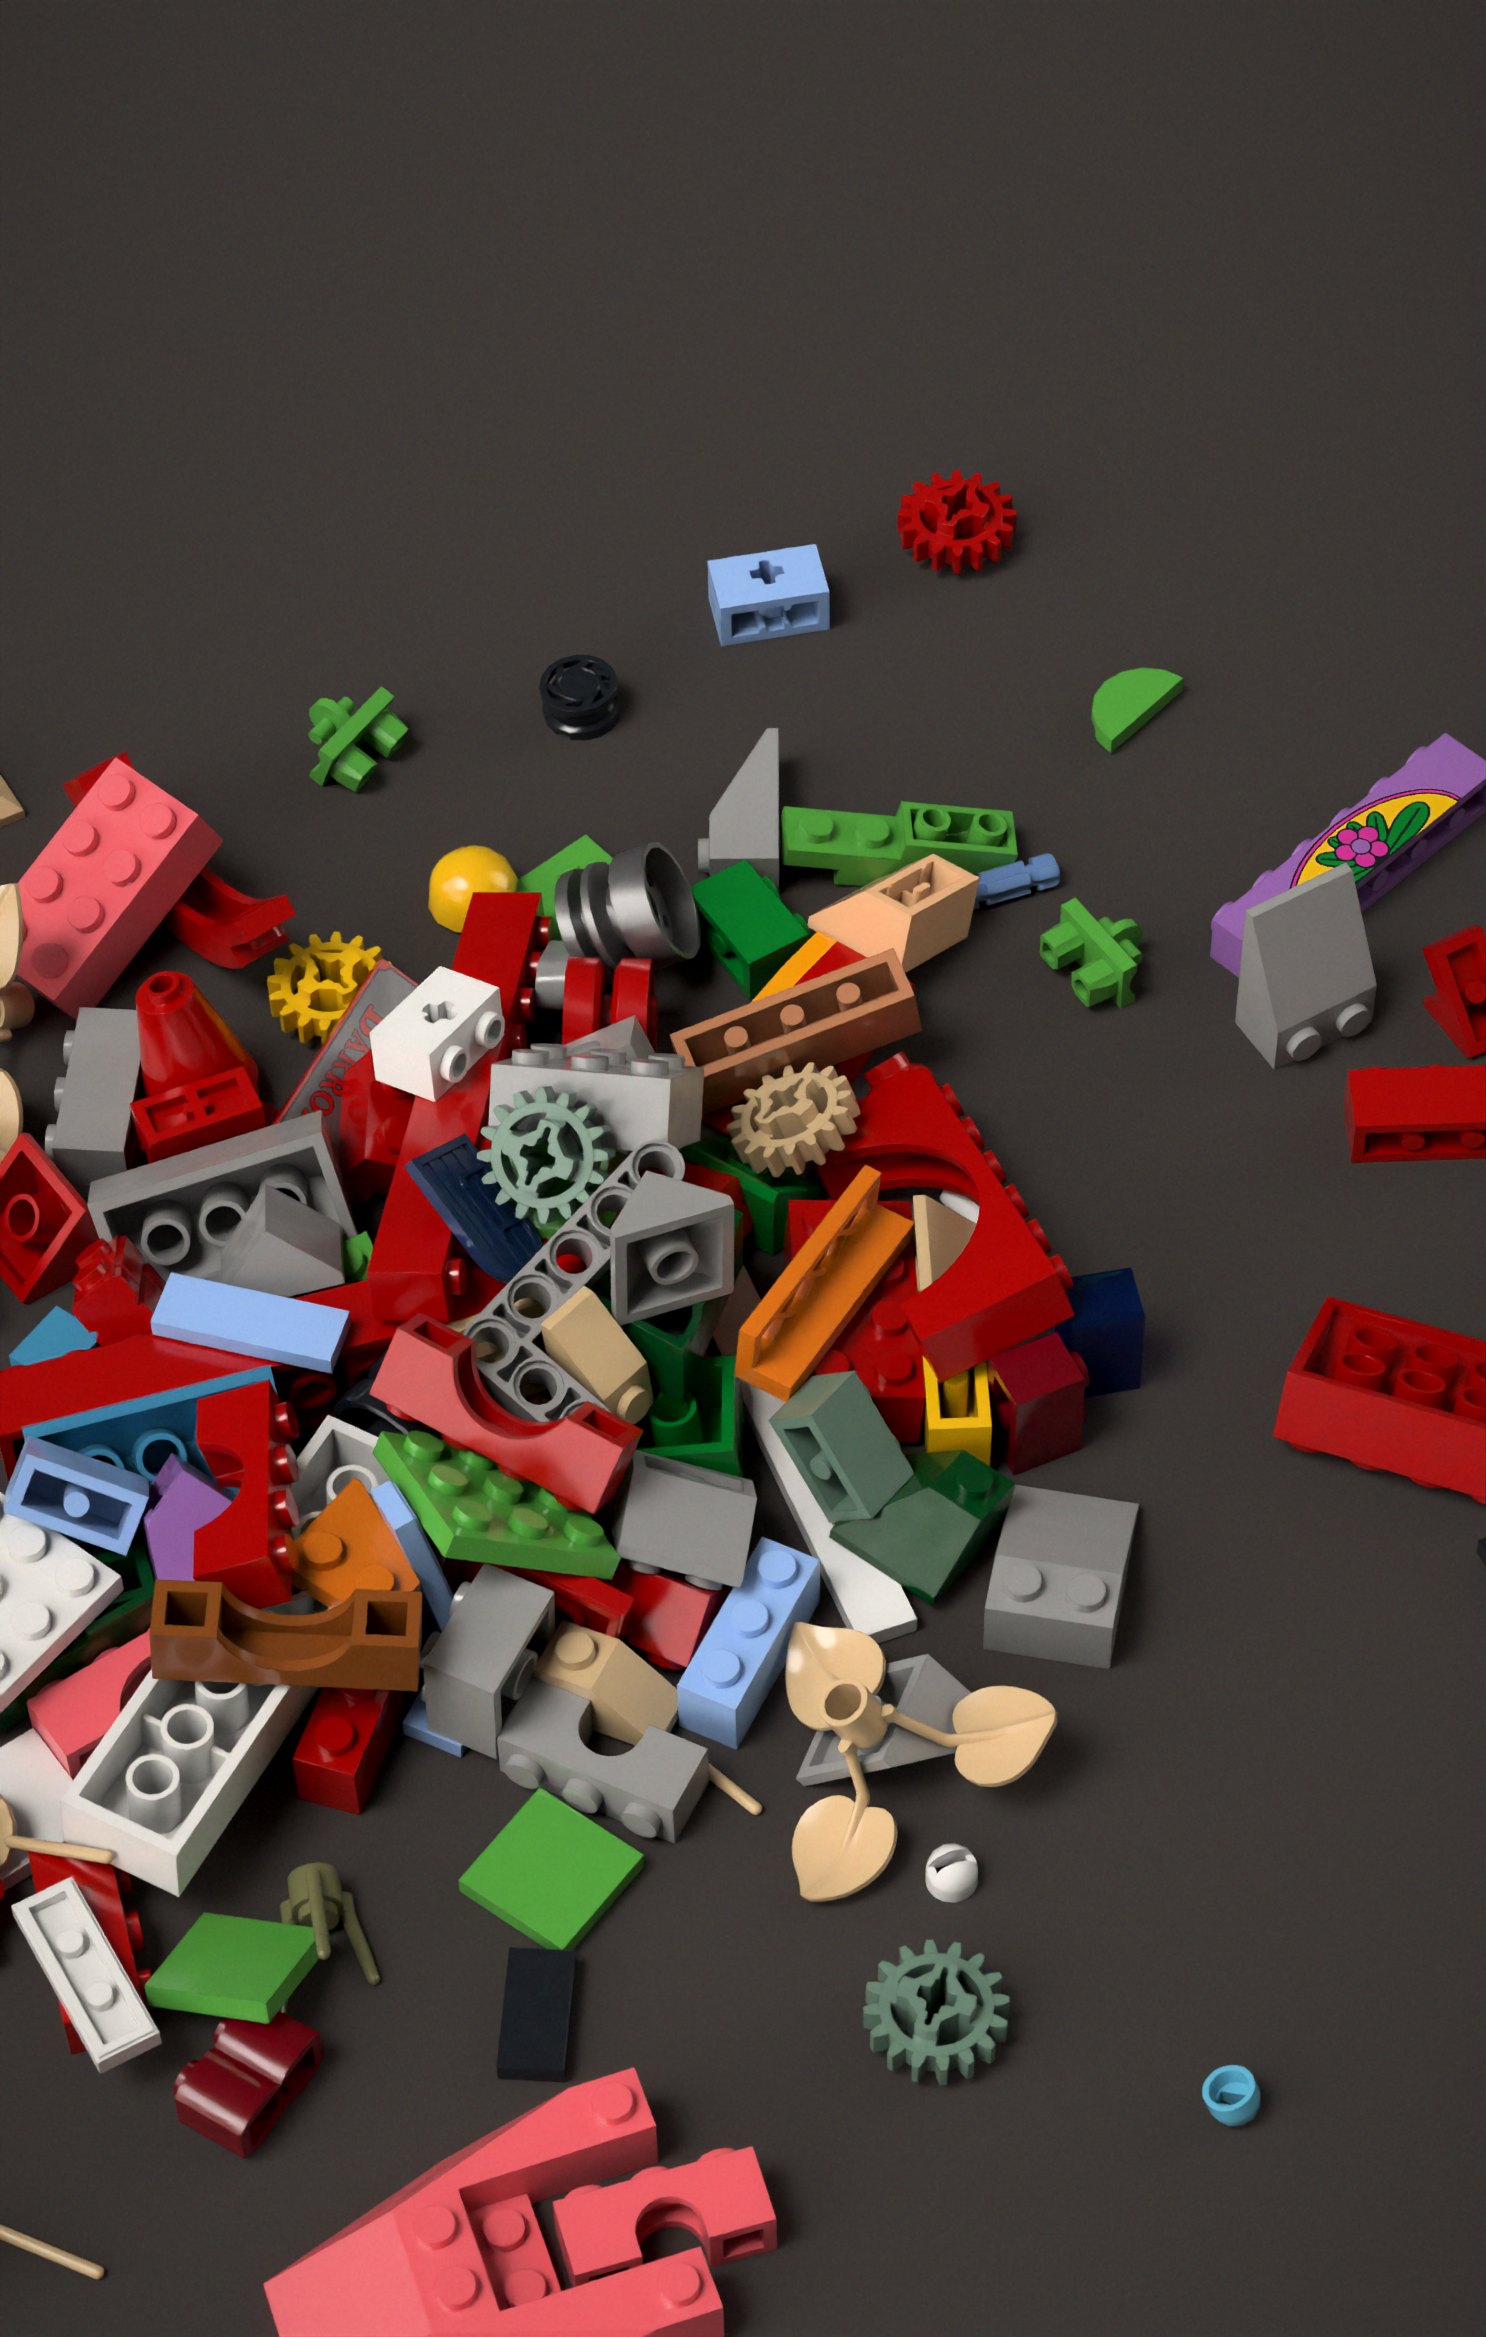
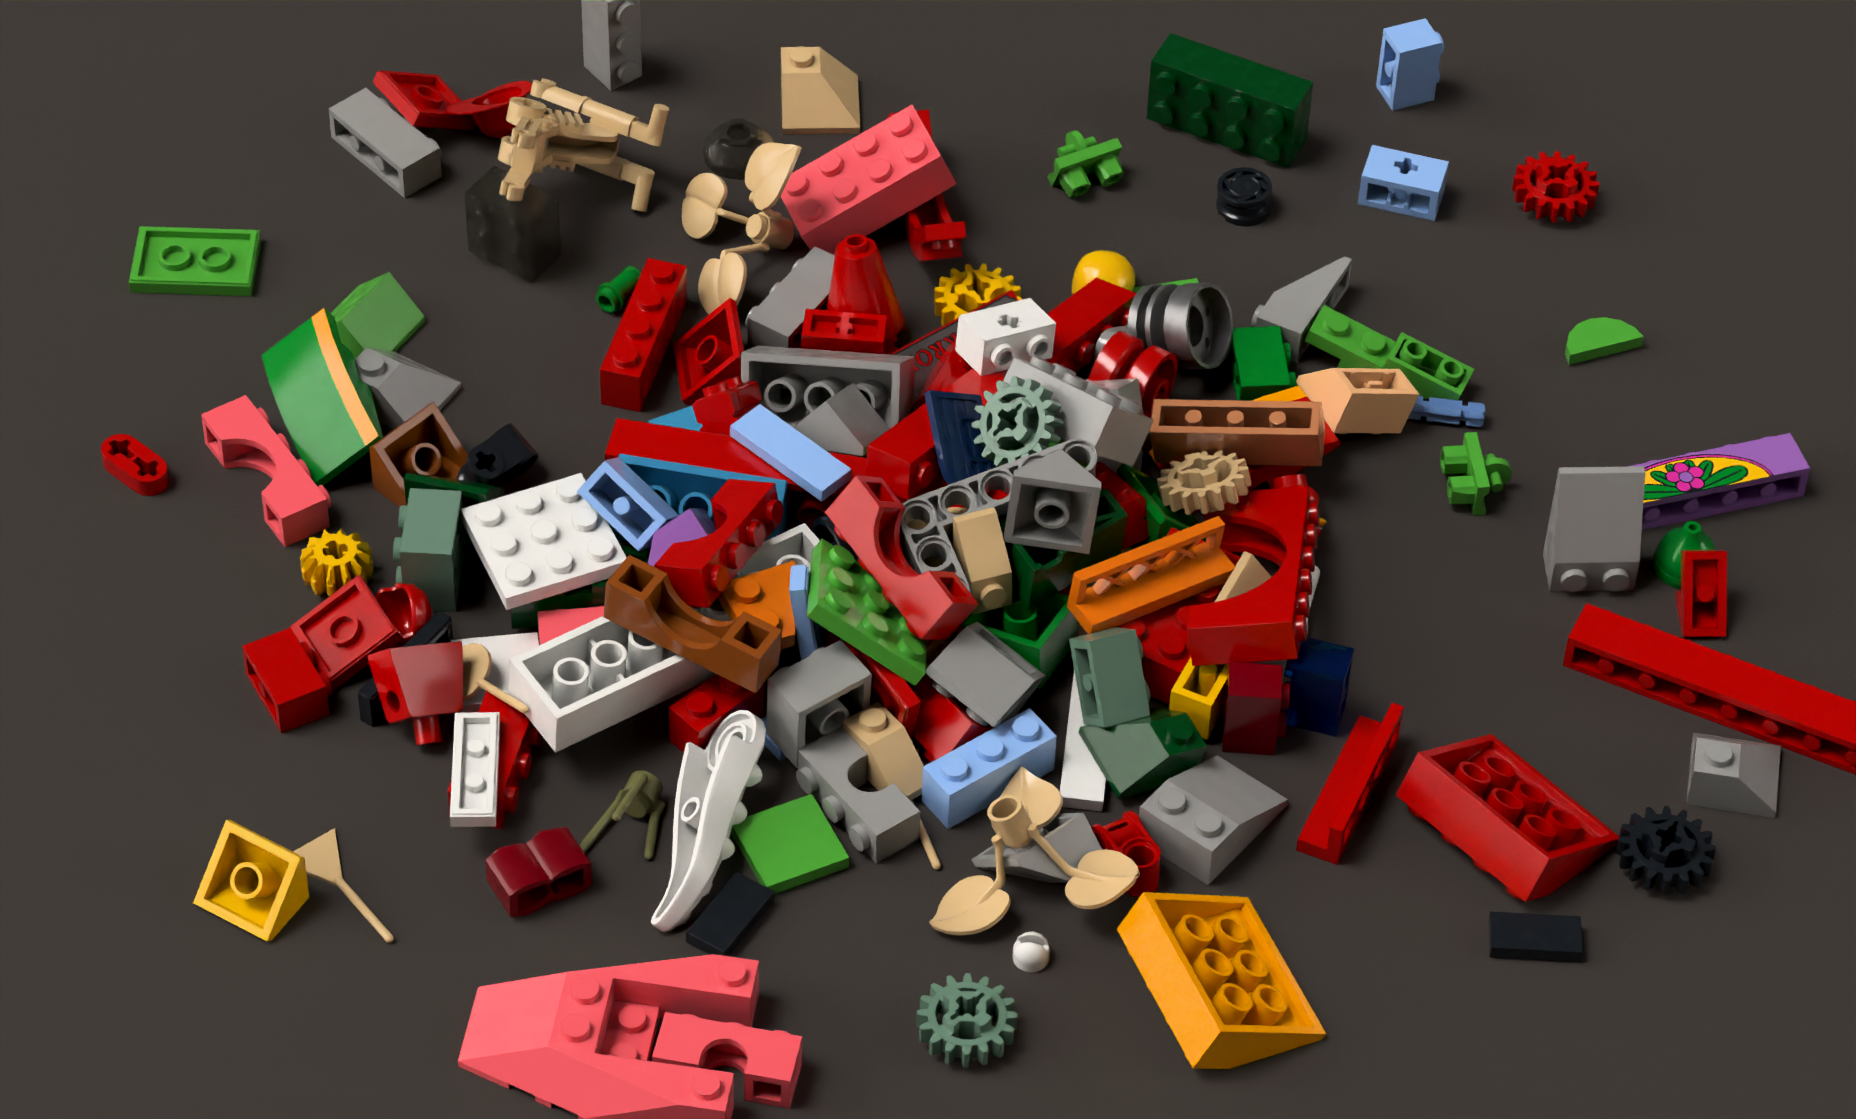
camera: 25 degrees right, 5 degrees down
(234, 1968) = (564, 807): bright green tile -> none
(425, 1875) = (706, 809): none -> white animal
(491, 574) = (1229, 100): none -> dark green brick
(685, 431) = (1409, 64): none -> light blue brick
(988, 1658) = (1133, 840): none -> red piece
(1207, 1449) = (1350, 786): none -> red fence
(1211, 1797) = (1218, 978): none -> light orange slope
(1398, 951) = (1668, 551): none -> green helmet

